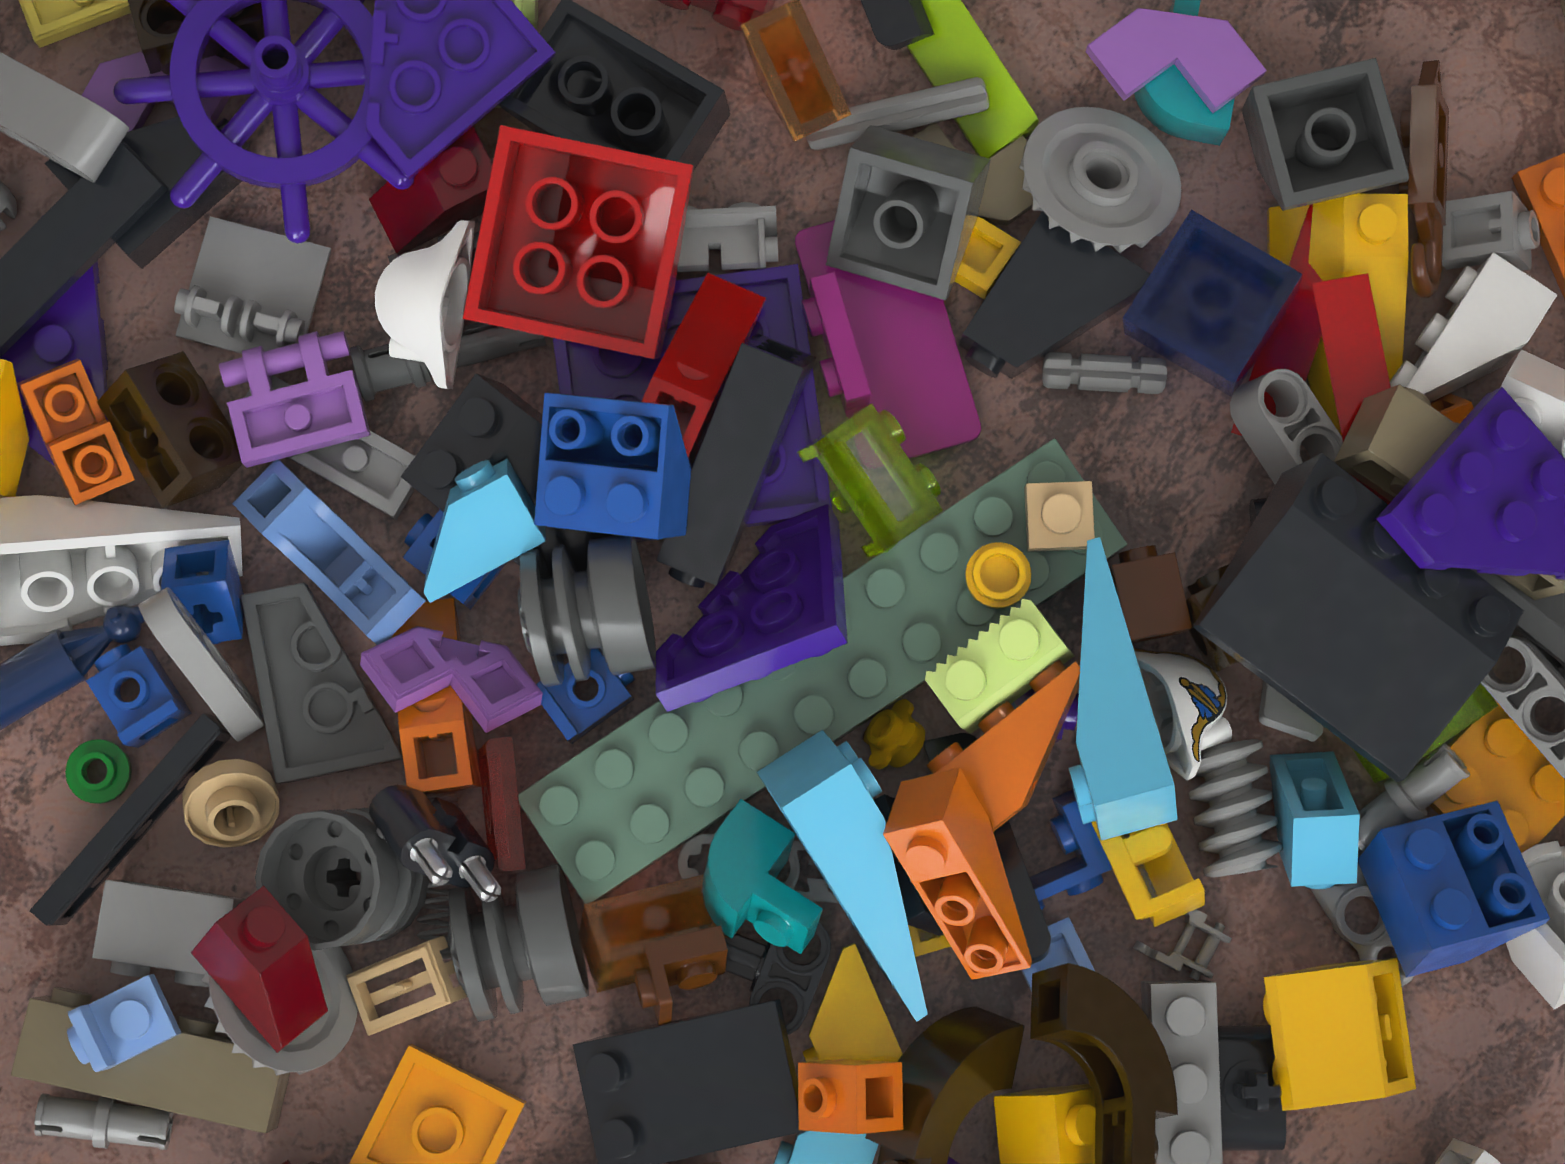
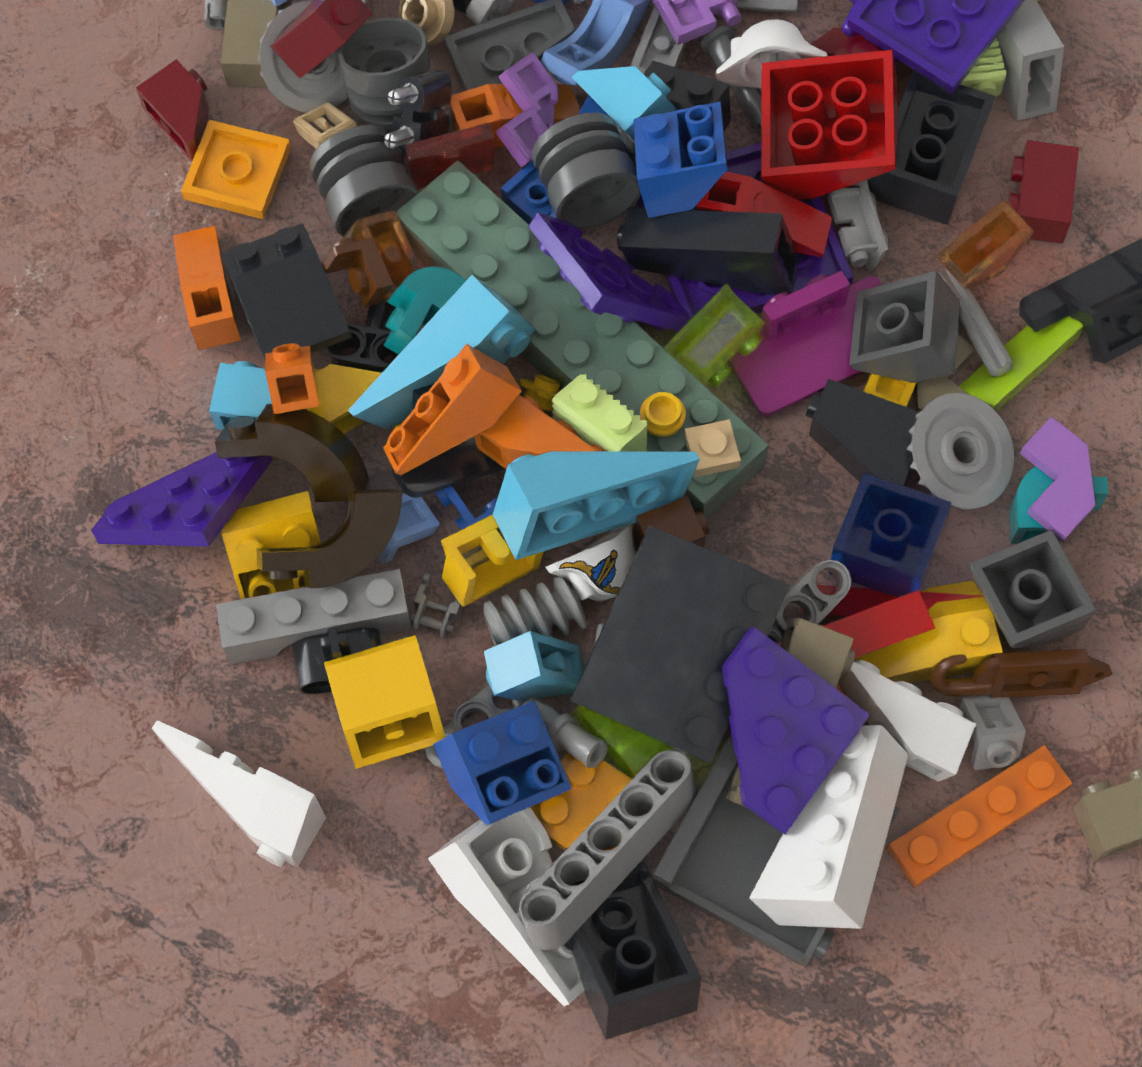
camera: 80 degrees right, 15 degrees down
(1104, 373) = (826, 488): light grey axle -> none

